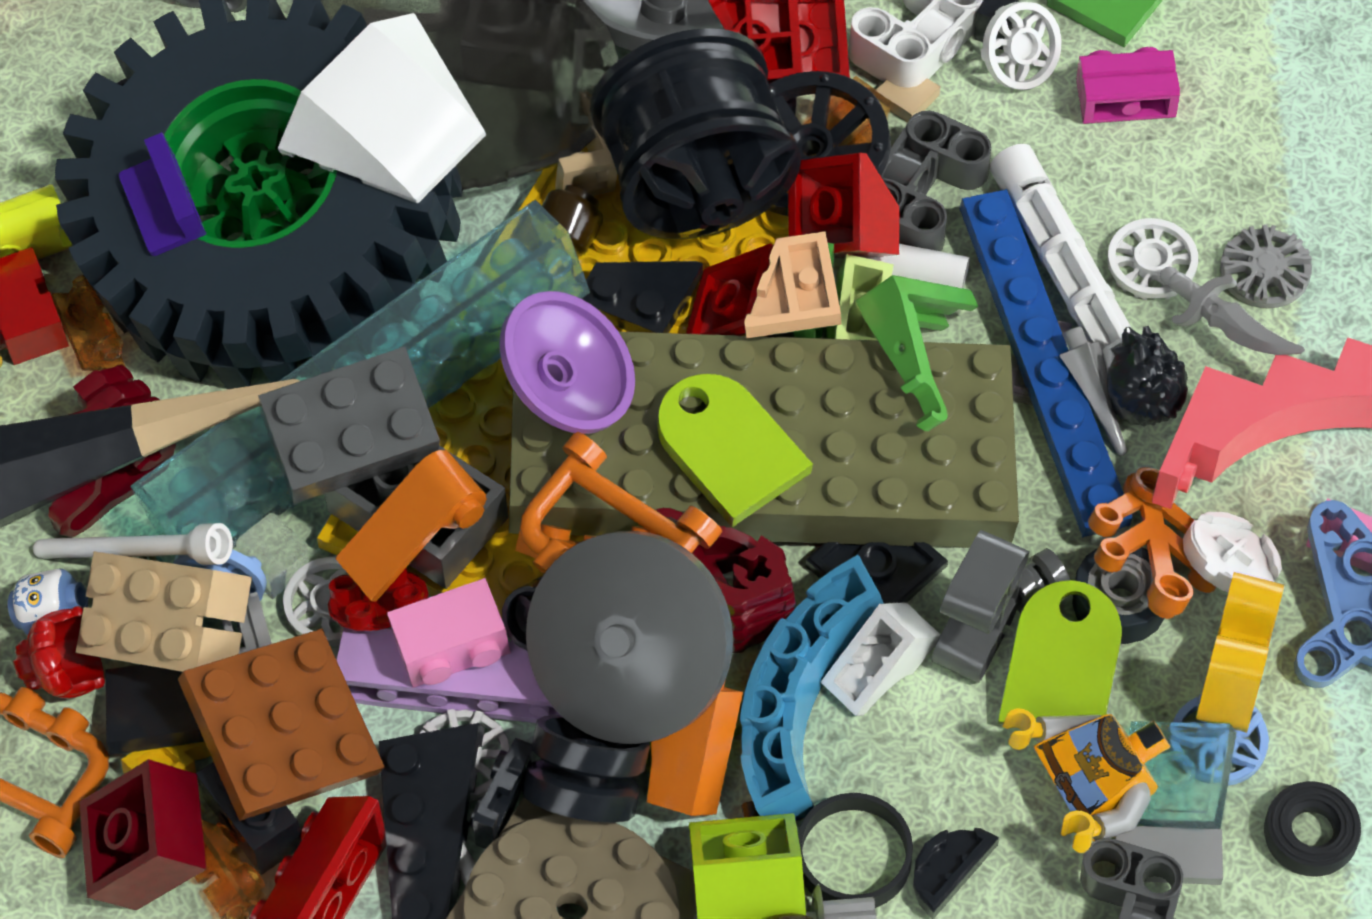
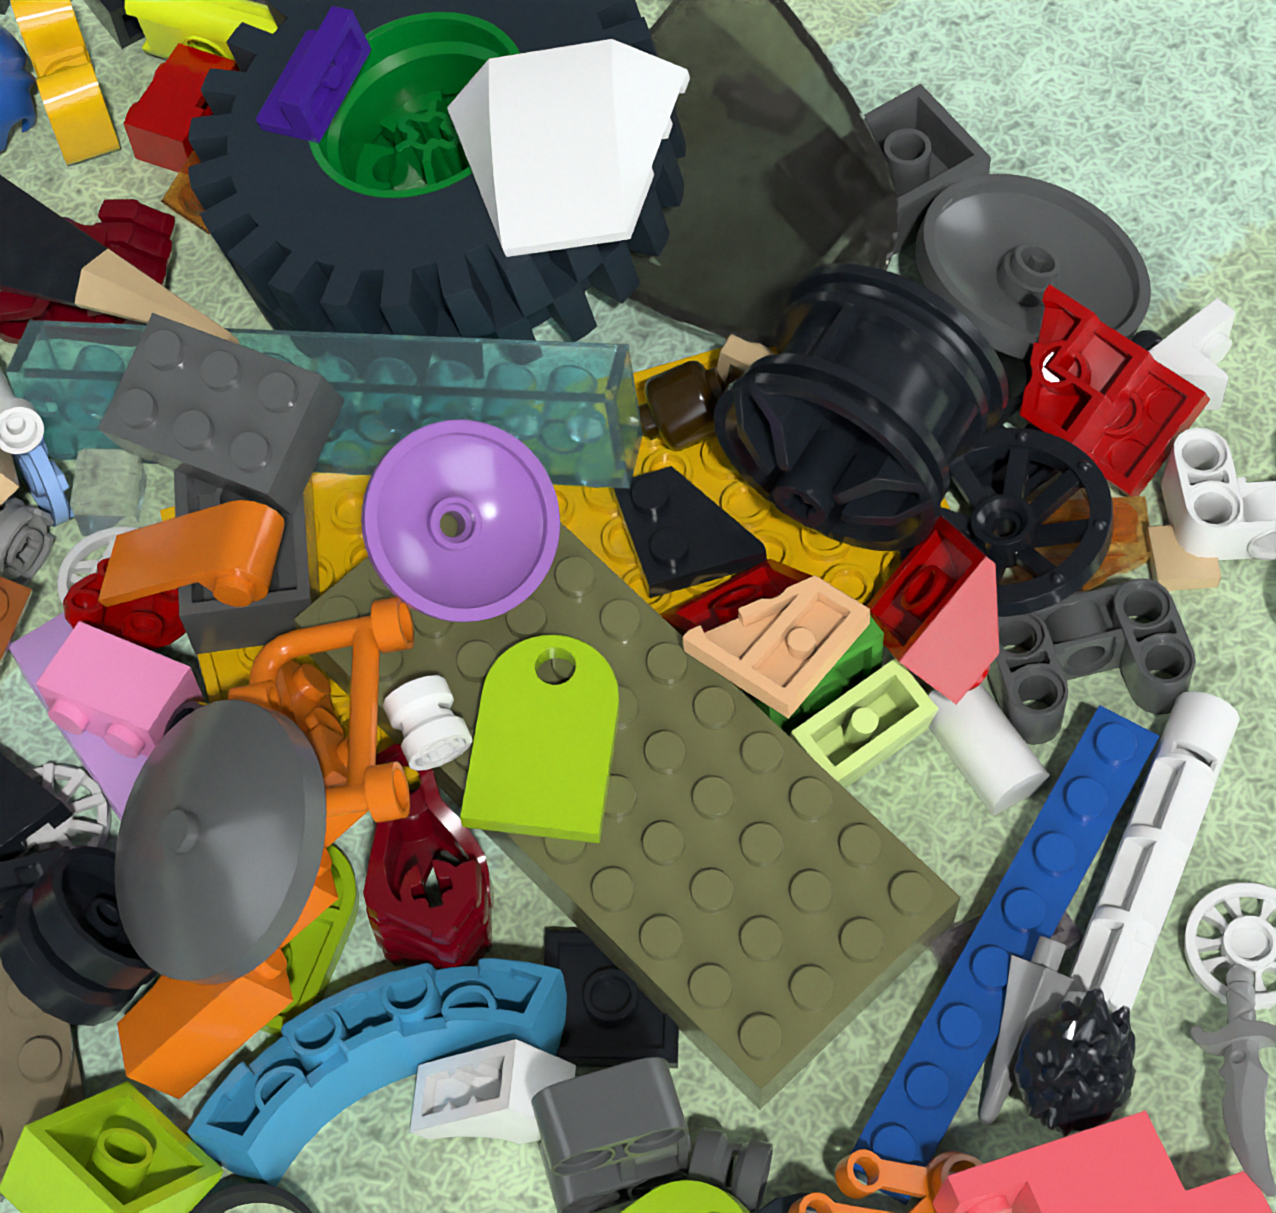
camera: 50 degrees right, 0 degrees up
(663, 485) = (427, 723): none -> white wheel
(895, 315) = (846, 755): bright green hinge -> none

